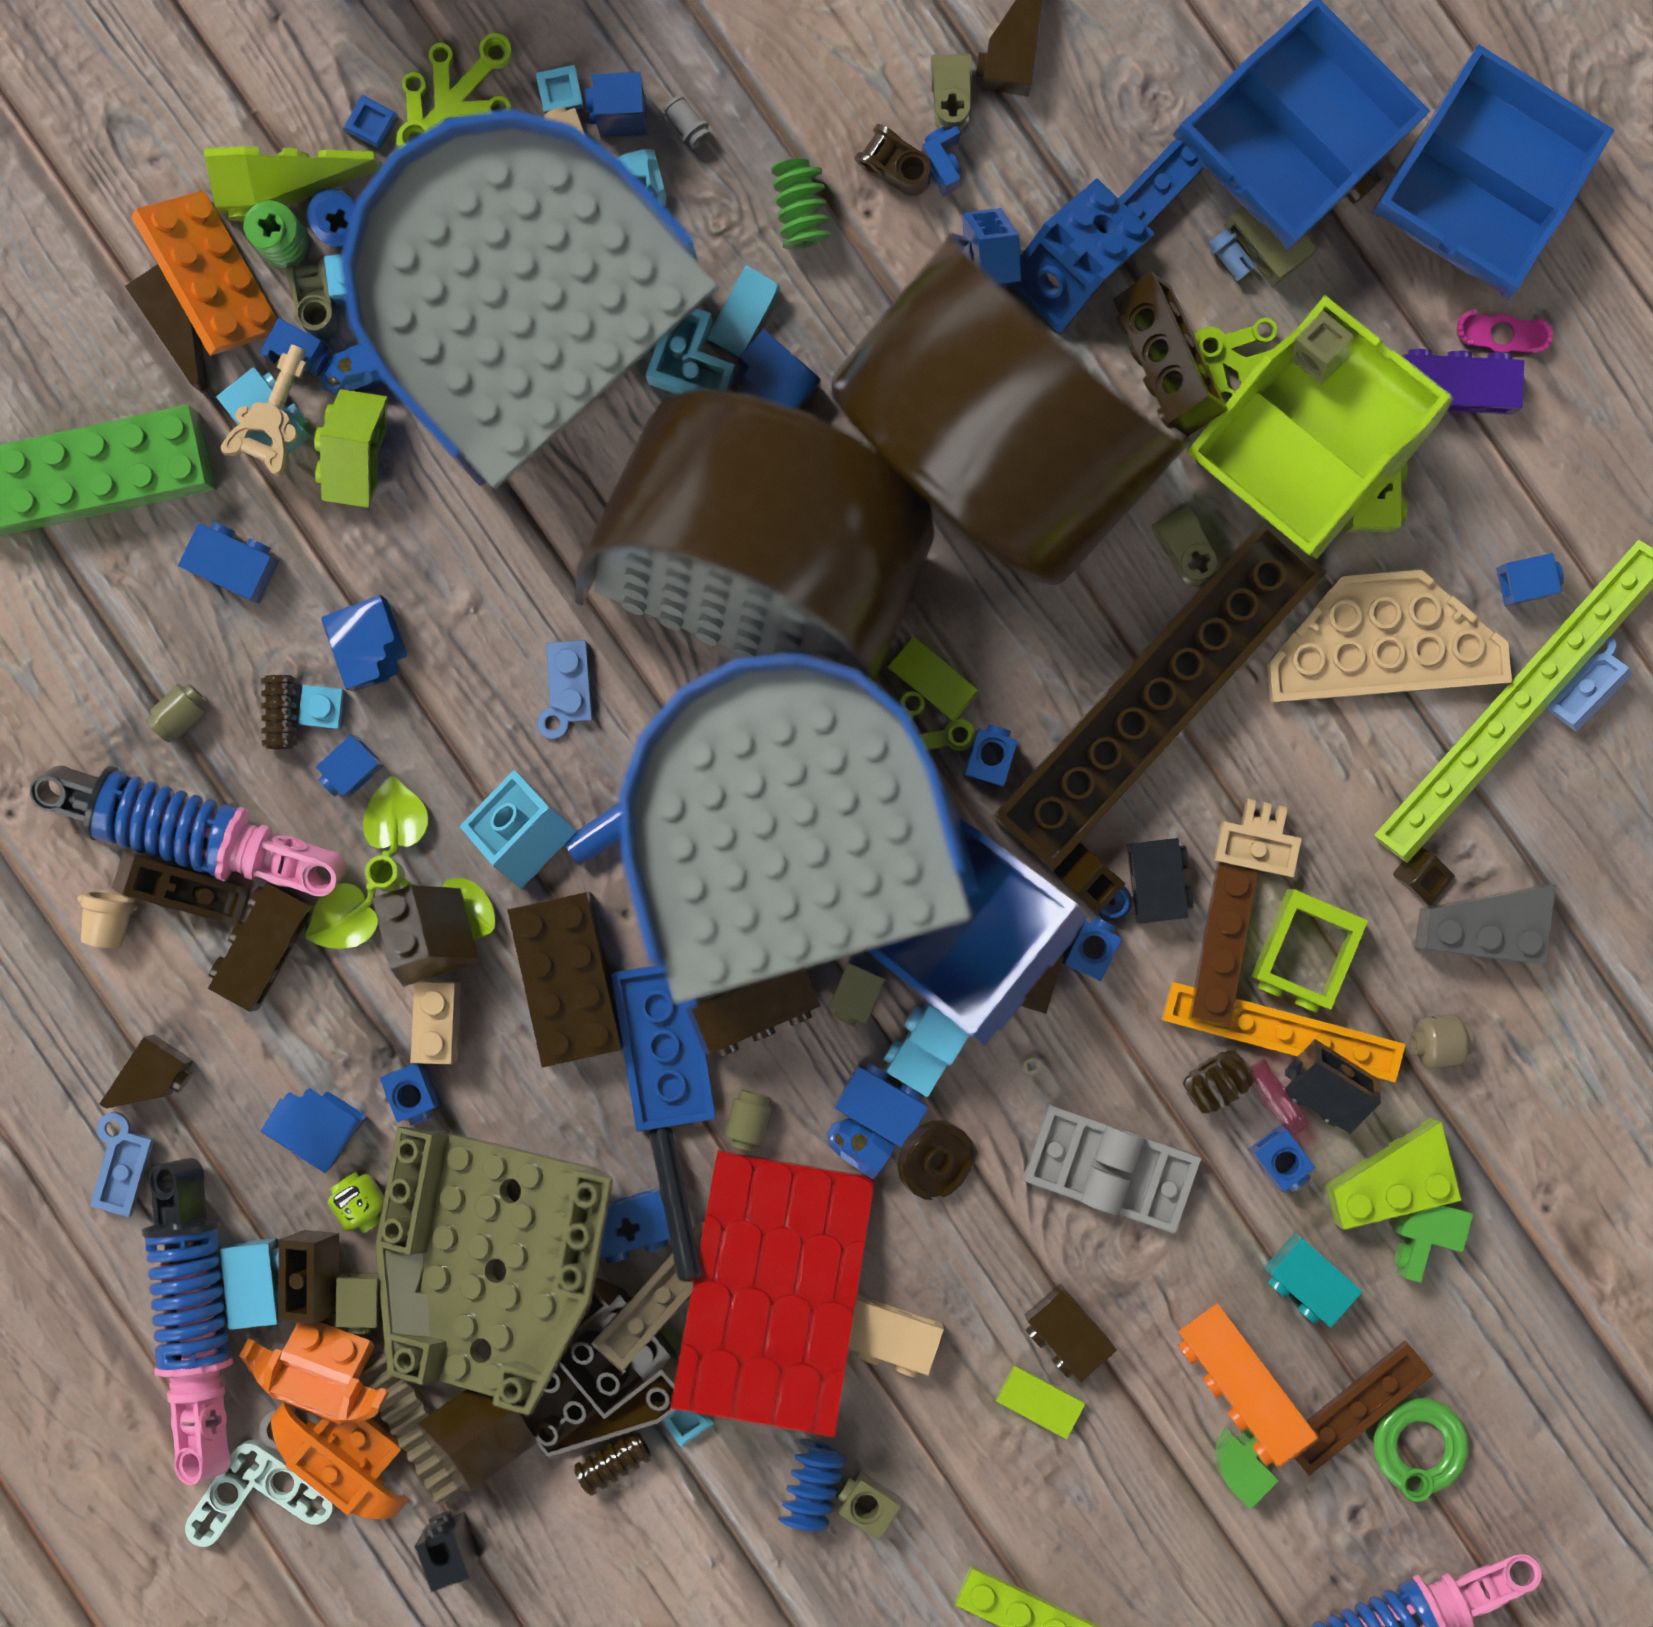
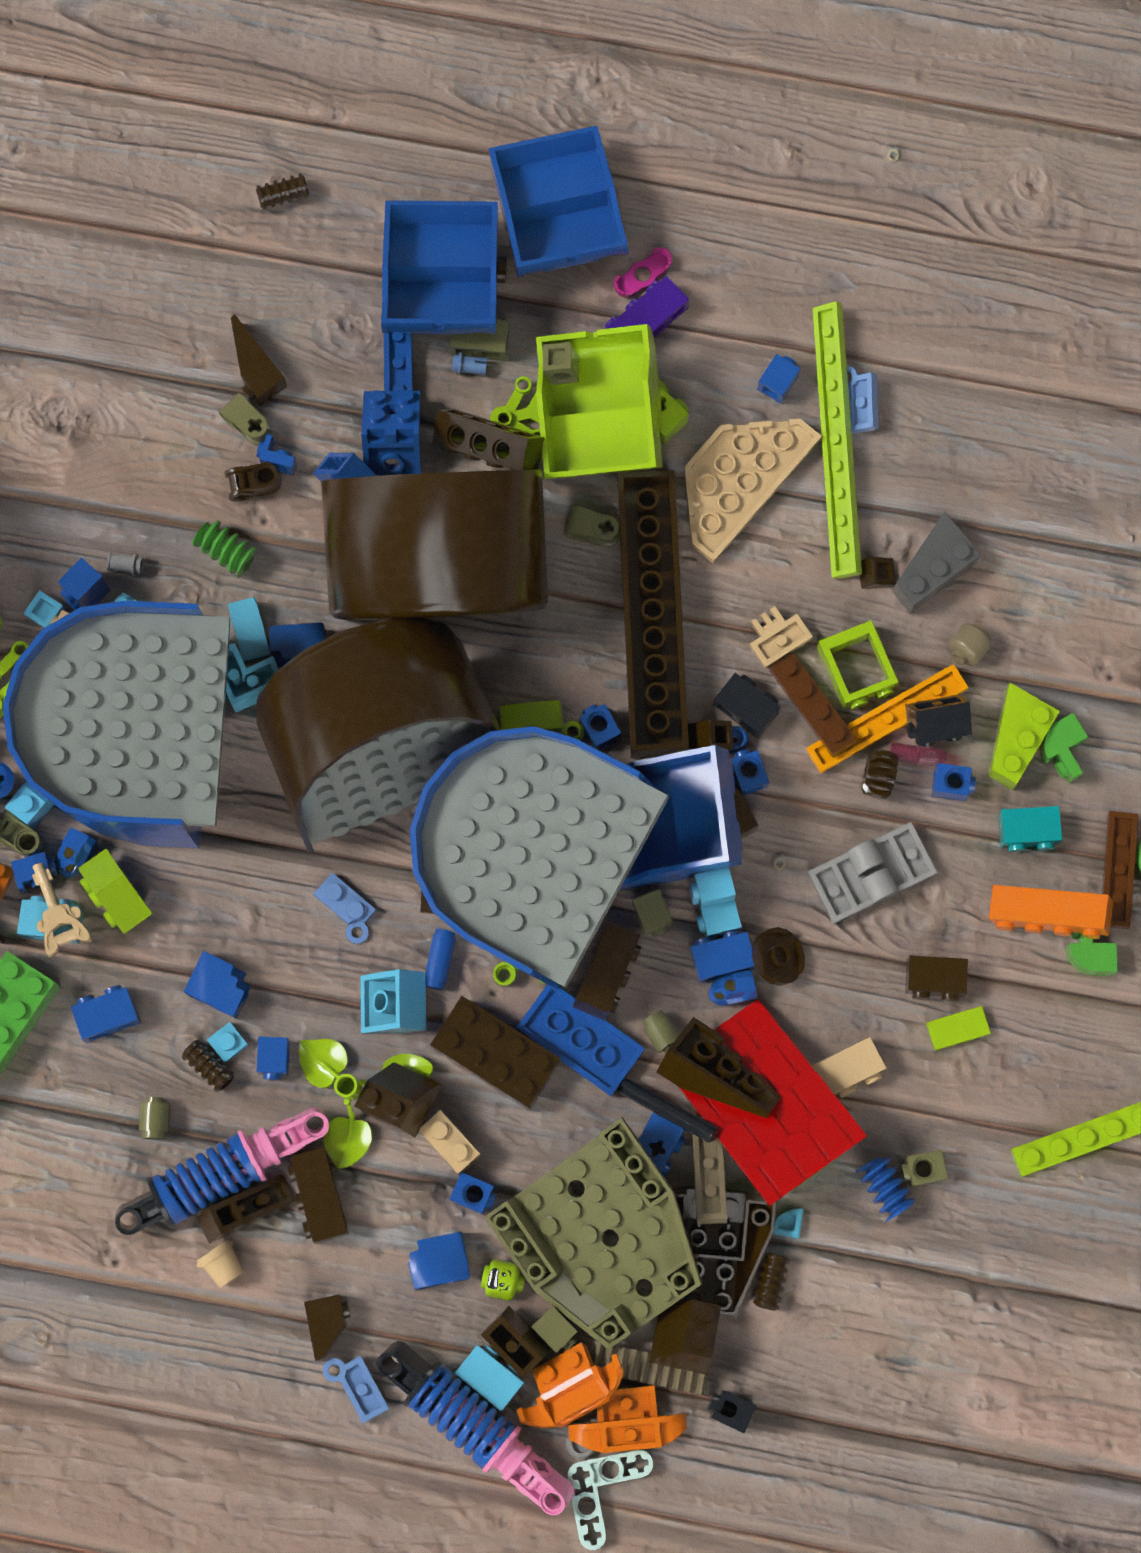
camera: 40 degrees left, 10 degrees down
(753, 1207) = (708, 1068): none -> dark brown wedge

